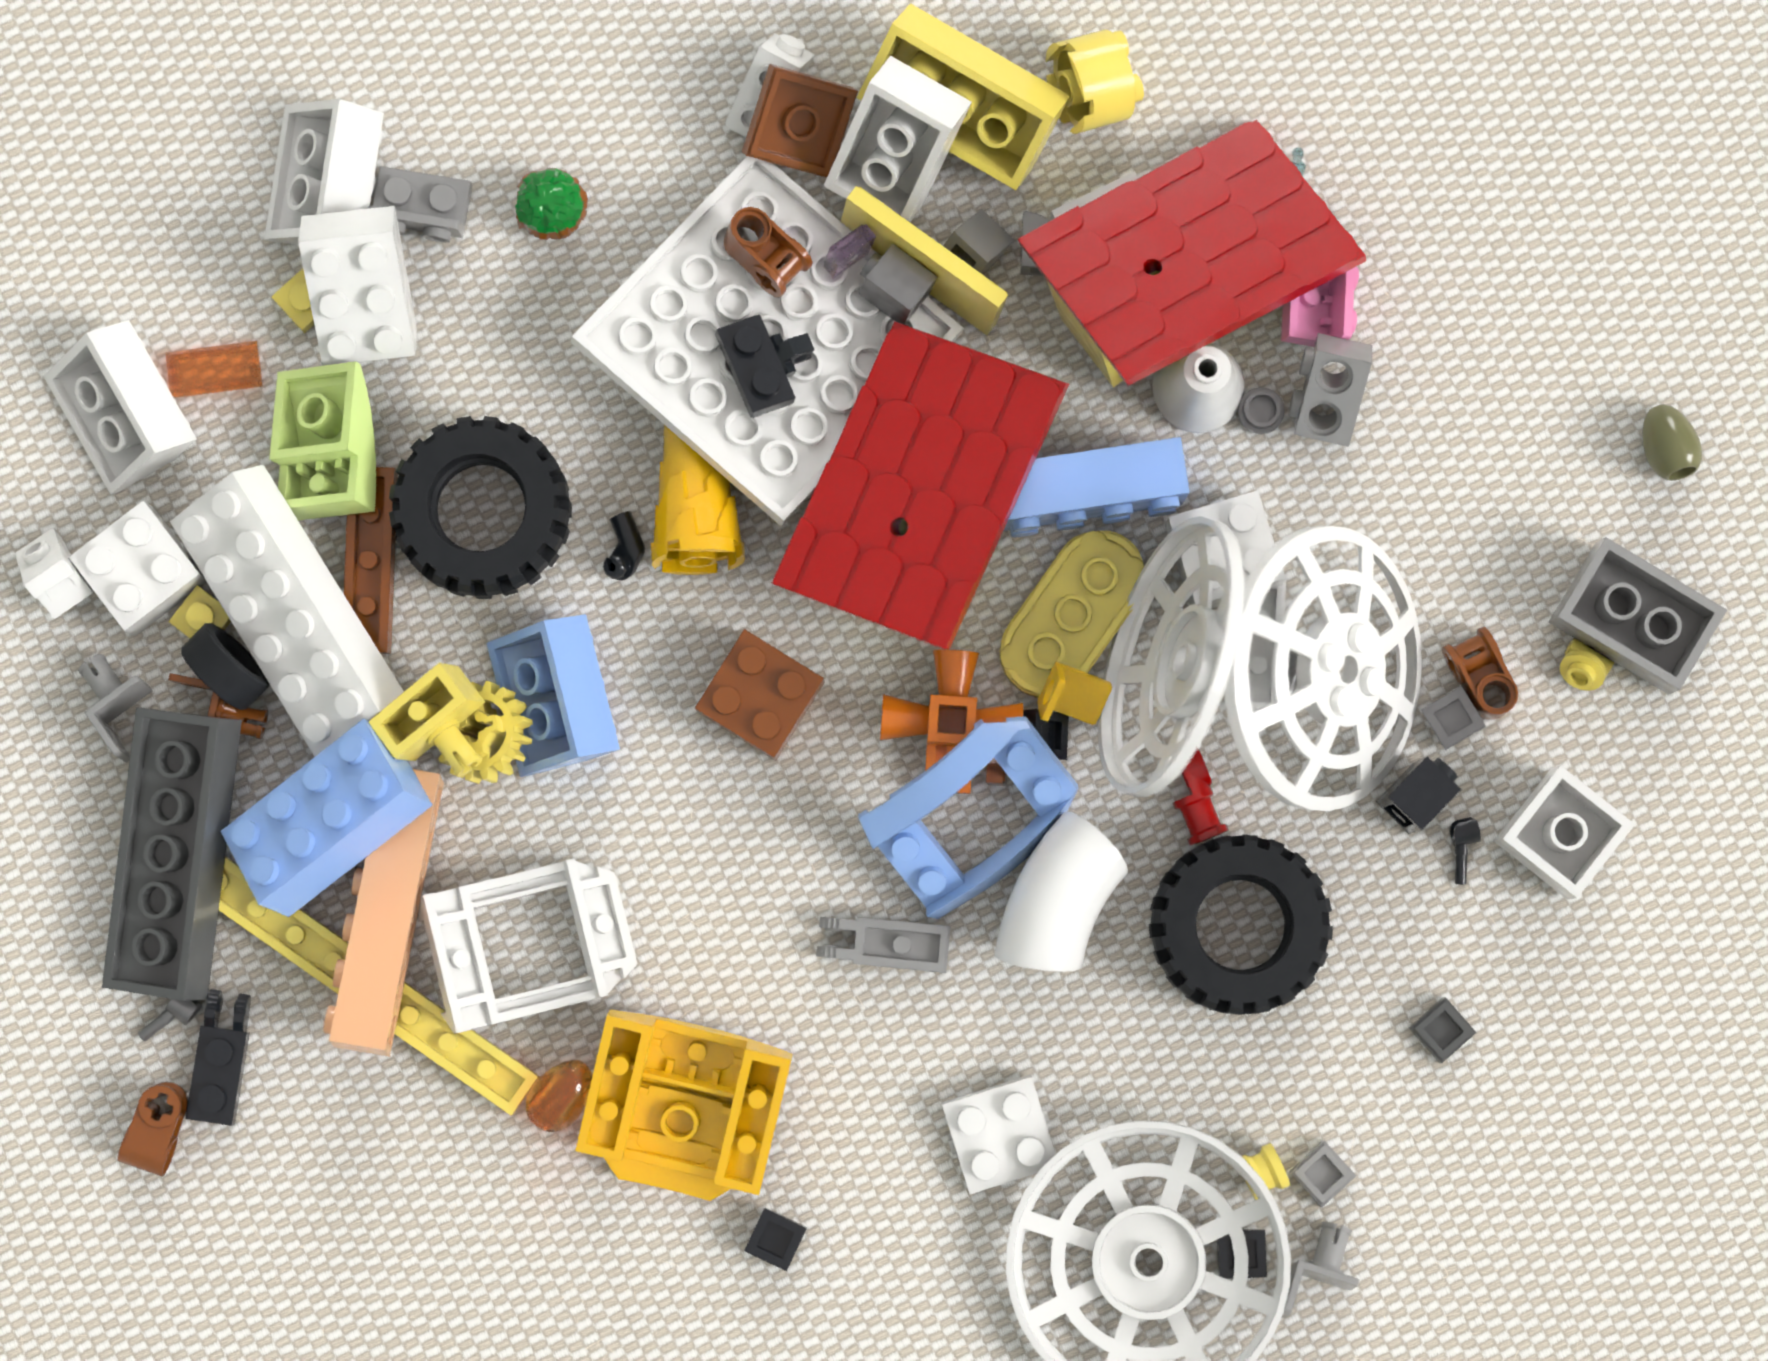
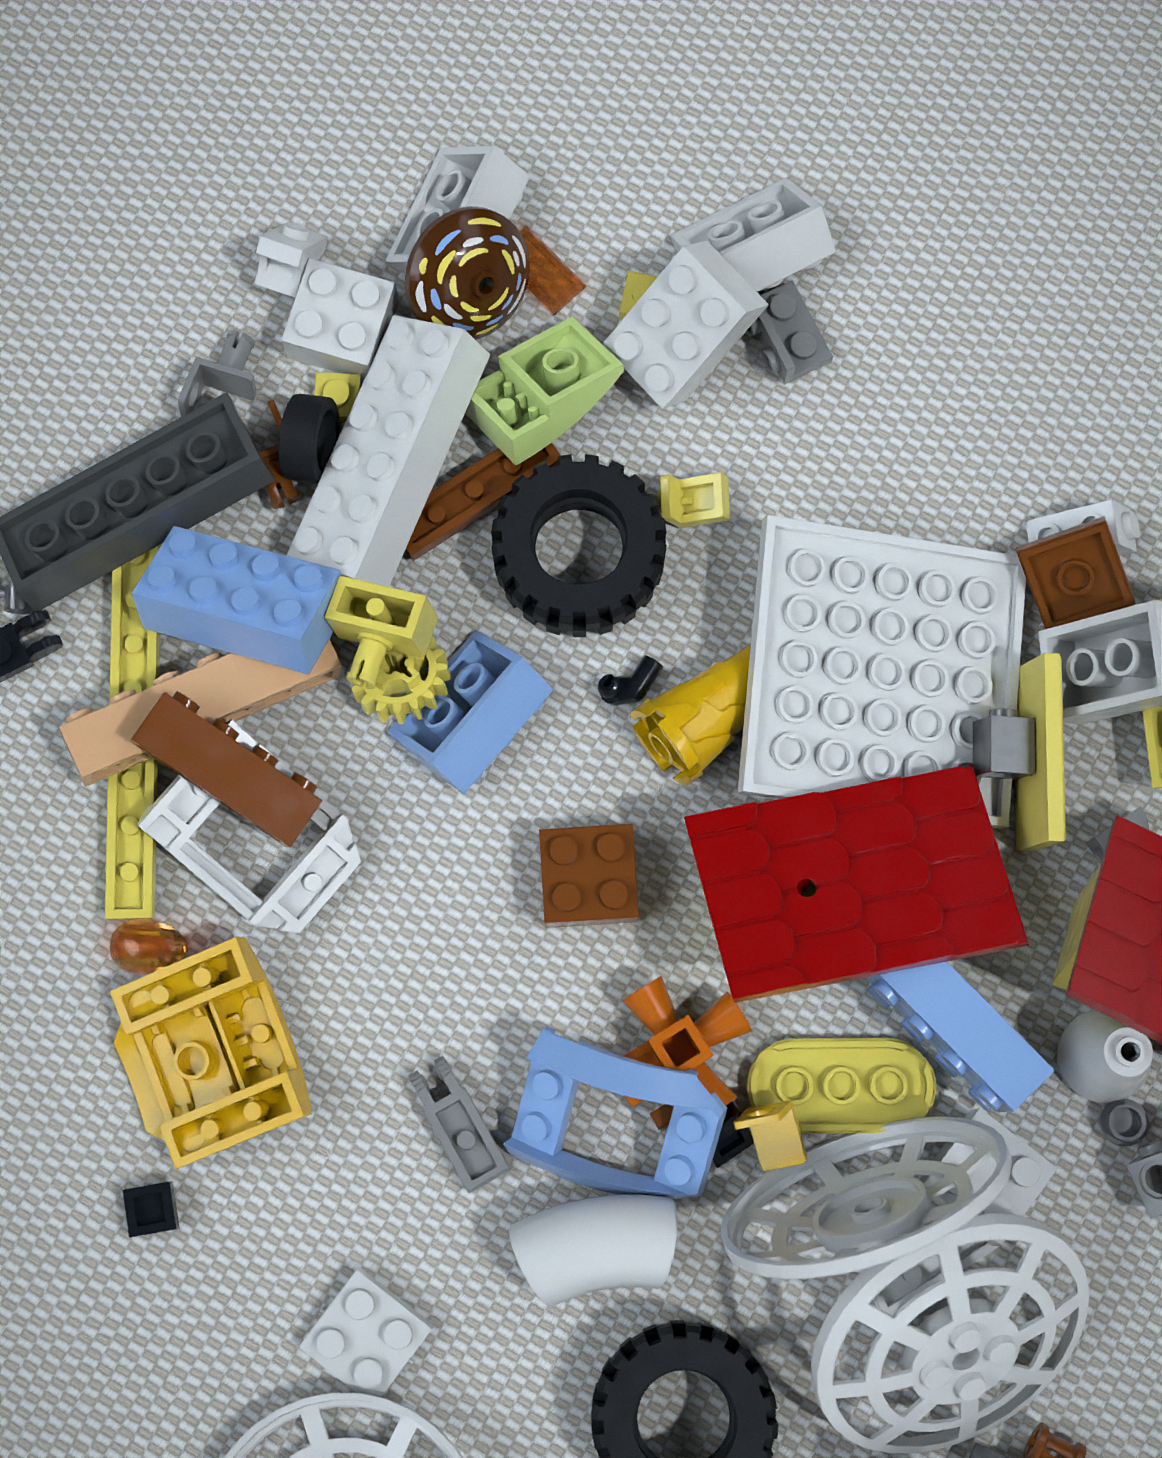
camera: 55 degrees right, 5 degrees down
(164, 436) = (452, 261): none -> reddish brown dish
(464, 927) = (226, 769): none -> dark orange brick
(509, 384) = (694, 499): none -> light yellow bracket
(550, 204) = (861, 429): green piece -> none
(762, 363) = (859, 682): black hinge -> none
(768, 253) = (948, 629): dark orange piece -> none
(849, 250) = (1002, 688): clear purple tile -> none
(979, 242) = (1088, 790): light grey brick -> none
(1198, 807) = (756, 1309): red connector -> none

